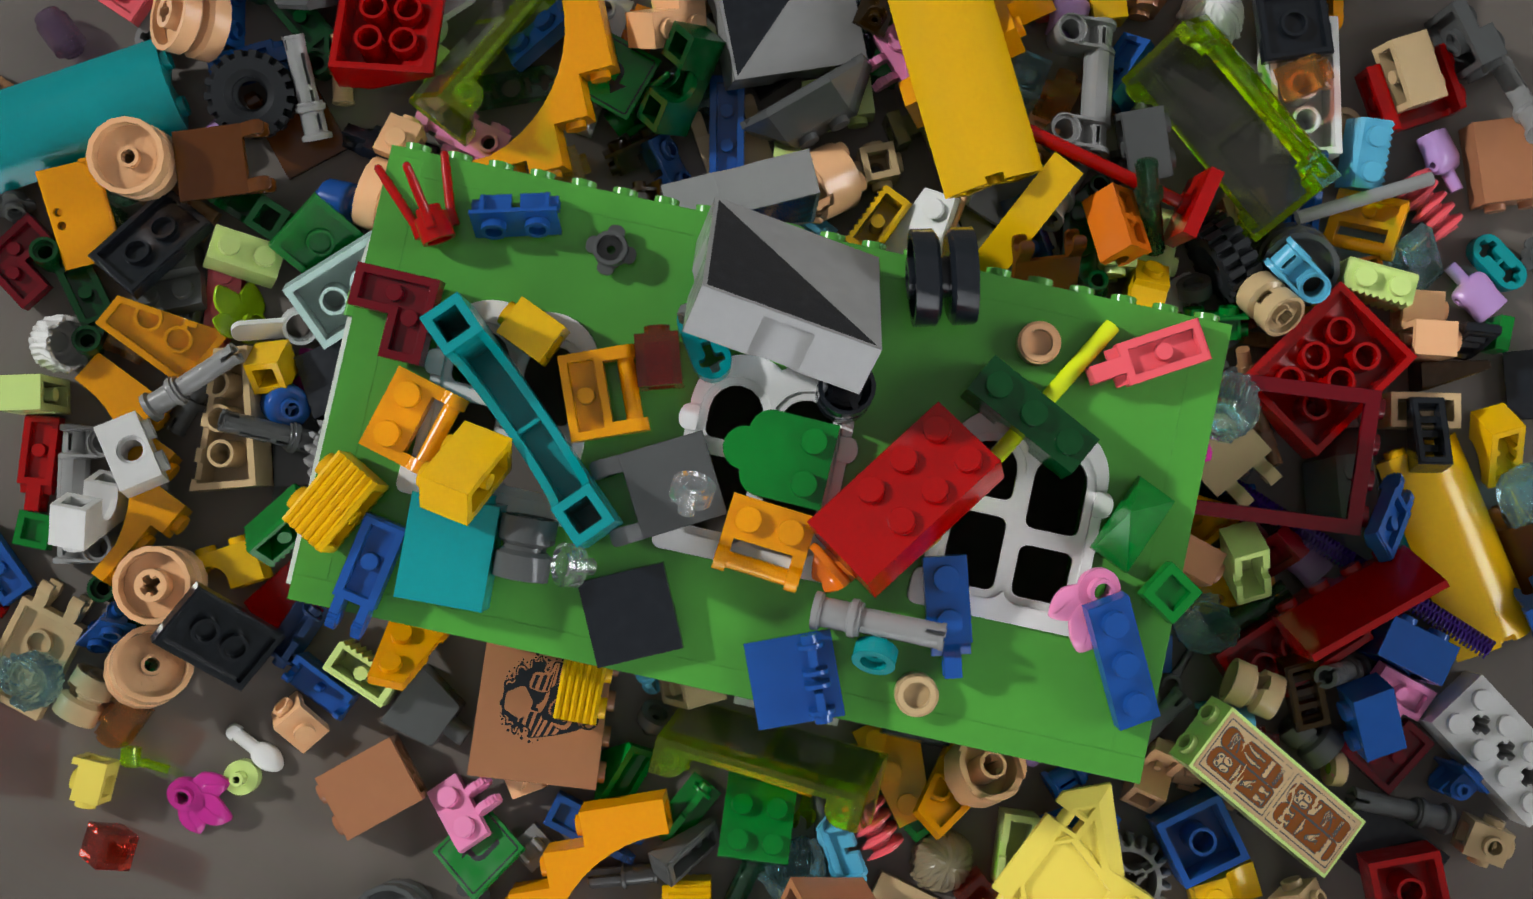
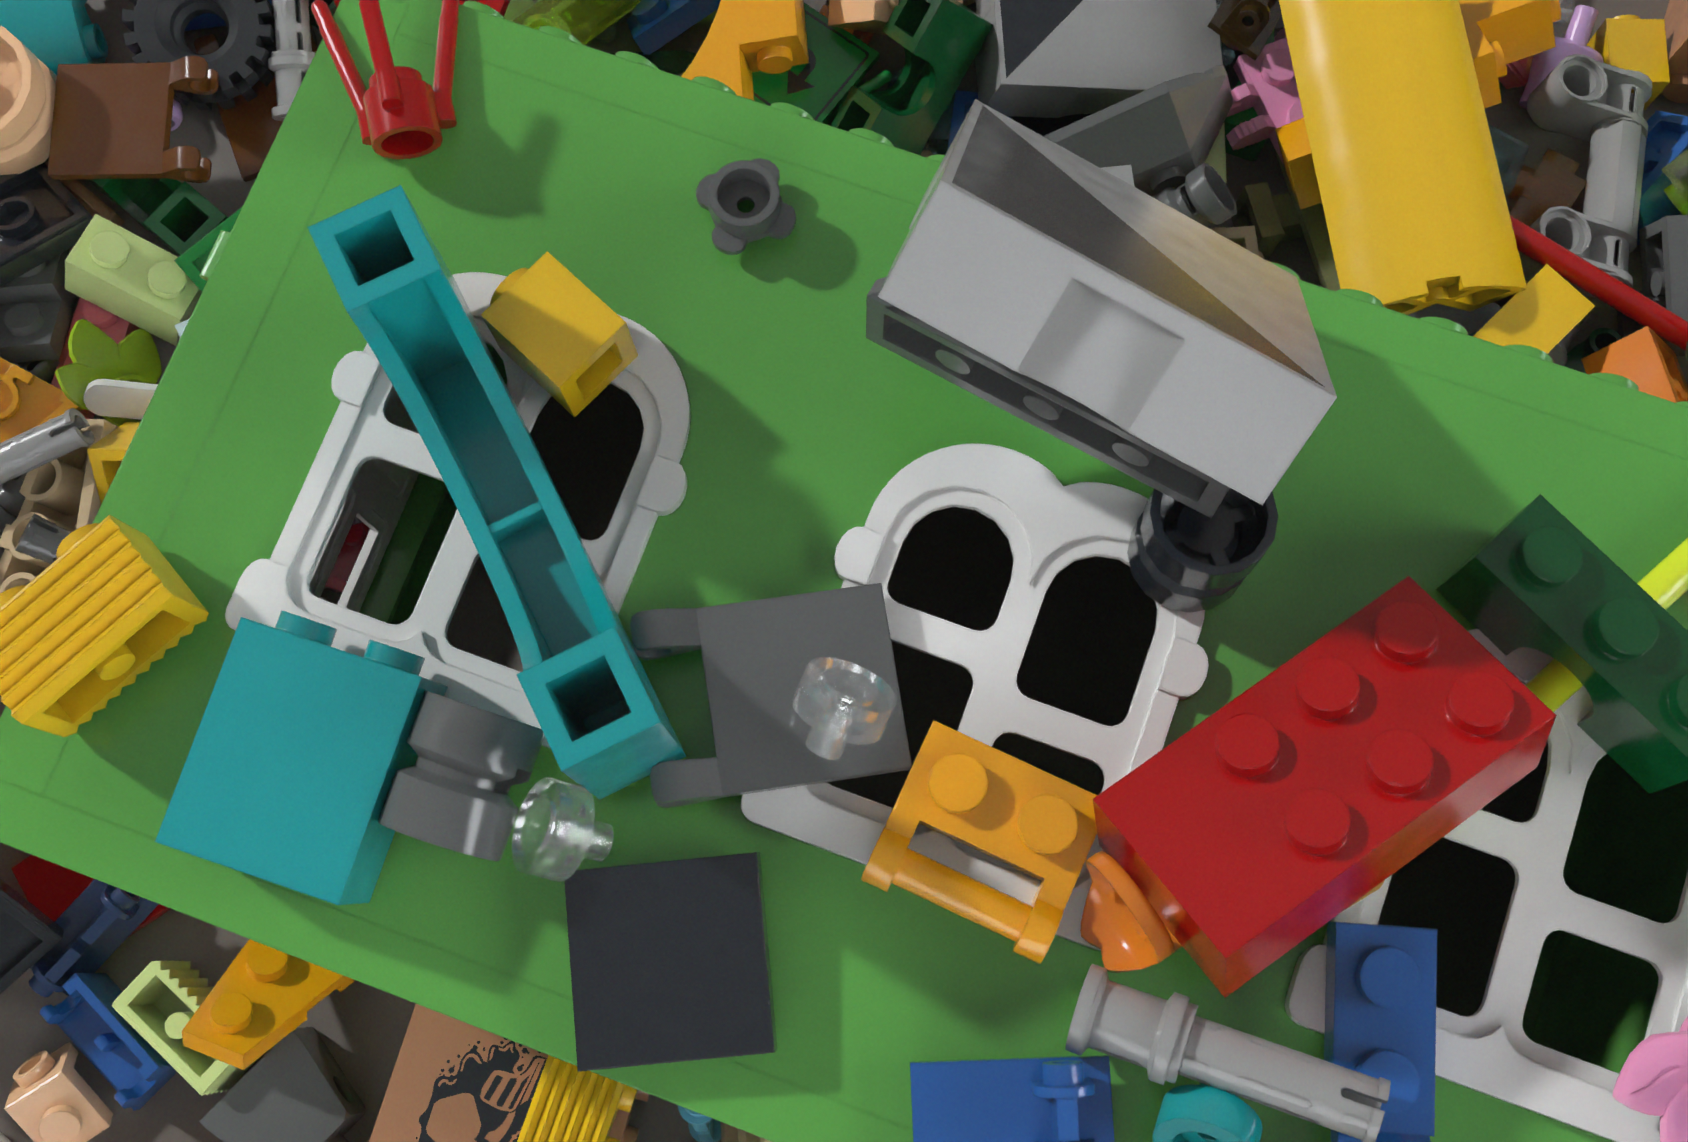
camera: 15 degrees right, 10 degrees down
(366, 571) = (112, 792): blue hinge -> none
(402, 414) = (265, 469): light orange plate -> none
(404, 300) = (265, 222): dark red plate -> none
(464, 472) = (357, 593): yellow brick -> none
(496, 217) = (551, 123): blue hinge -> none
(588, 393) = (653, 483): light orange plate -> none
(658, 358) = (810, 422): clear red brick -> none
(697, 356) = (889, 414): teal beam -> none
(783, 457) = (1049, 663): green plate -> none
(857, 135) = (1201, 196): none -> dark grey wheel
(948, 276) = (1438, 323): black wheel -> none
(1038, 343) = (1614, 499): light nougat tile -> none

